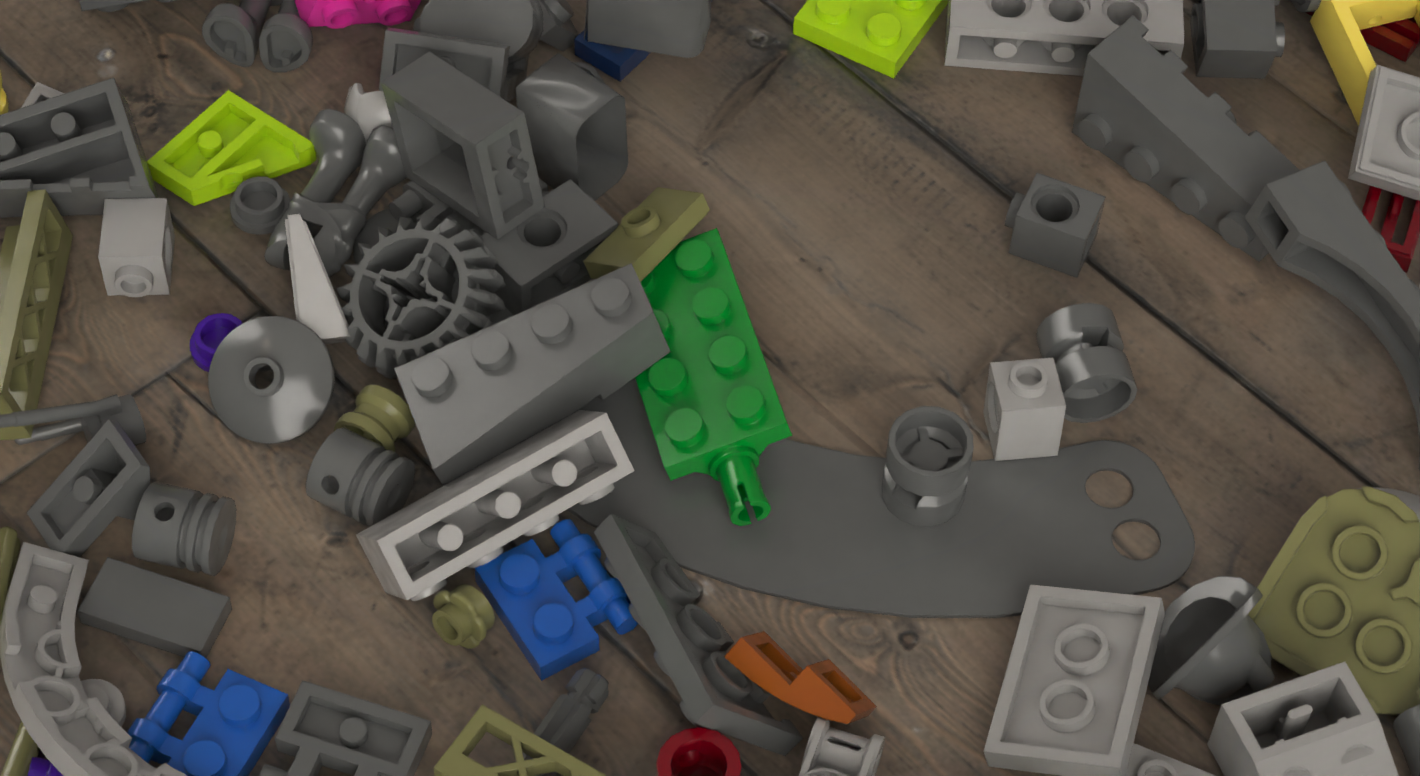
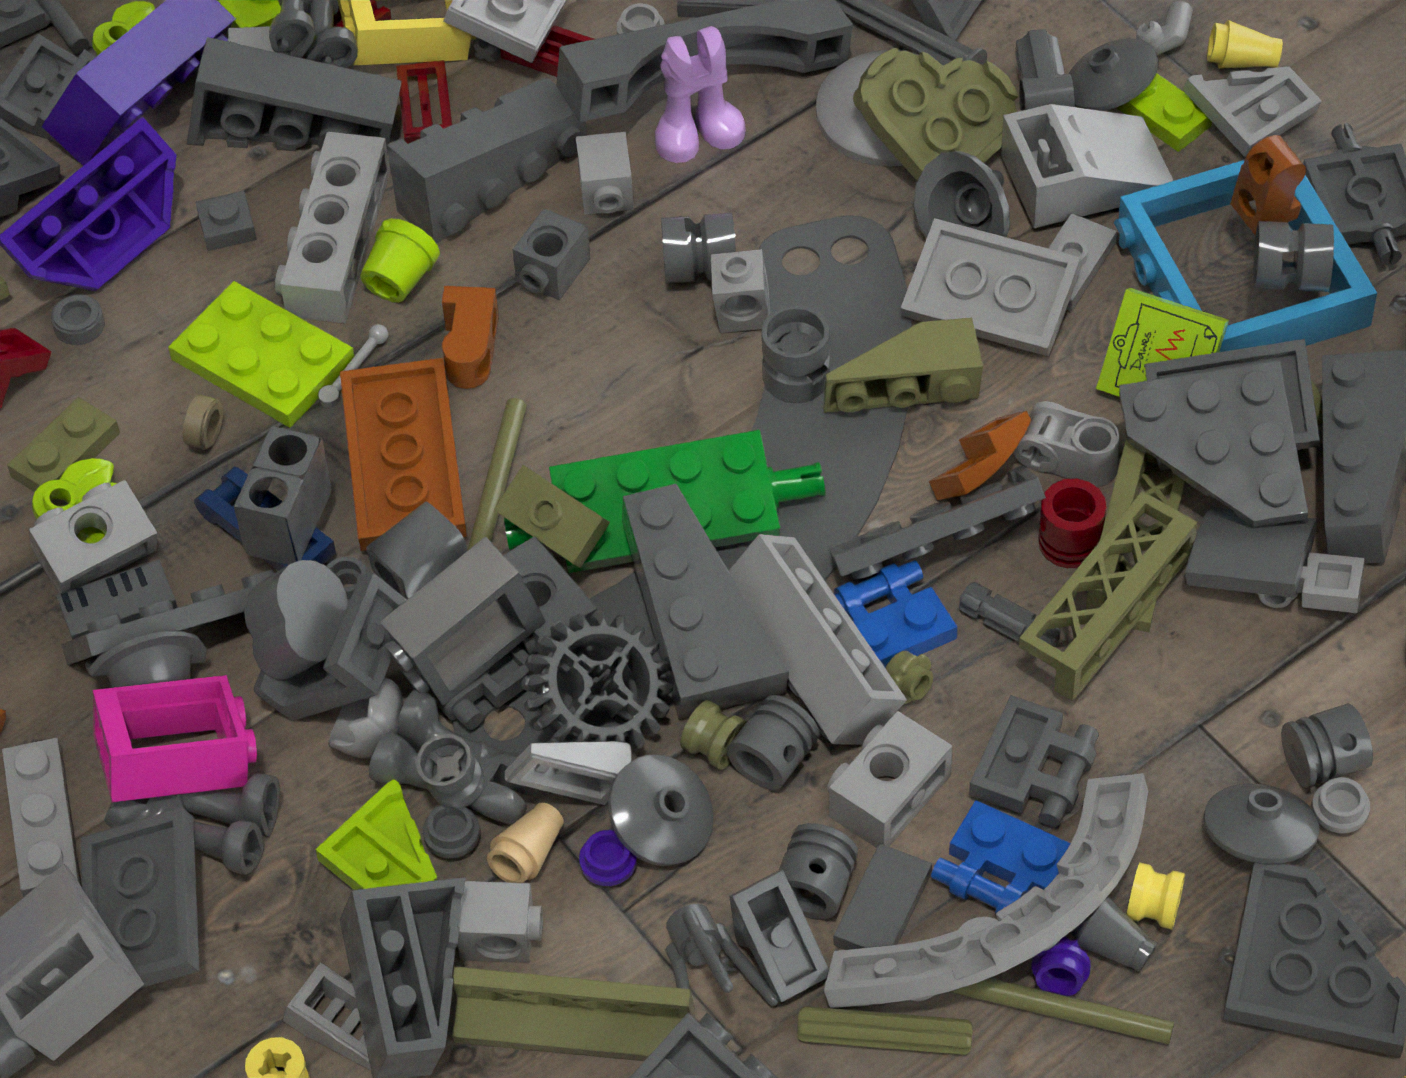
camera: 80 degrees left, 0 degrees up
(236, 267) = (523, 846): none -> tan cone
(296, 171) = (449, 758): none -> dark grey wheel
(326, 631) = (881, 808): none -> light grey brick
(739, 210) = (498, 470): none -> olive bar
(752, 119) = (400, 445): none -> dark orange plate
(836, 59) = (329, 394): none -> light grey hinge
(924, 162) = (470, 344): none -> dark orange leg
(939, 607) = (915, 367): none -> olive slope
(1019, 85) = (398, 260): none -> lime piece
(1192, 266) = (604, 173): none -> light grey brick
(1281, 106) = (421, 70): none -> dark red tile
(1315, 334) = (684, 75): none -> lavender piece

